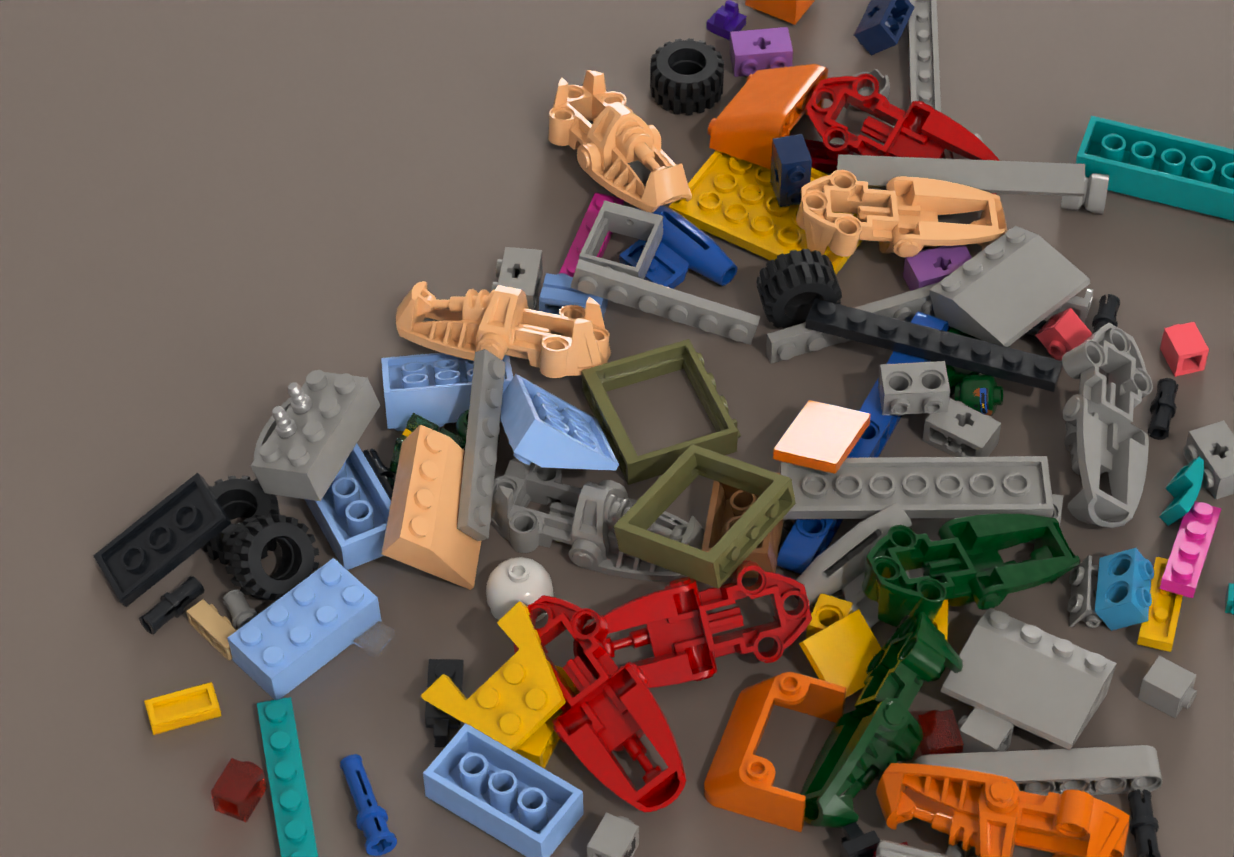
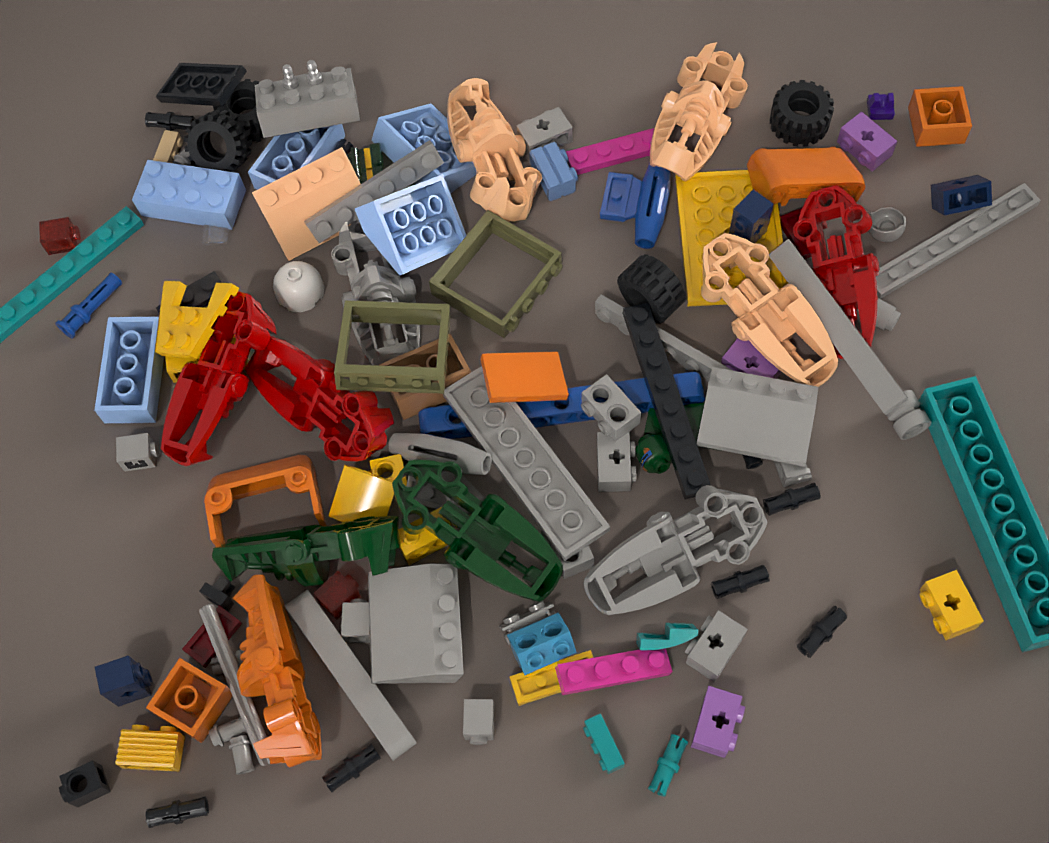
camera: 60 degrees right, 15 degrees up
(182, 708) = (104, 173): yellow tile -> none
(617, 219) = (601, 150): light grey window -> none
(665, 302) = (582, 230): light grey plate -> none
(1063, 333) = (749, 477): coral brick -> none
(1184, 349) = (807, 564): coral brick -> none

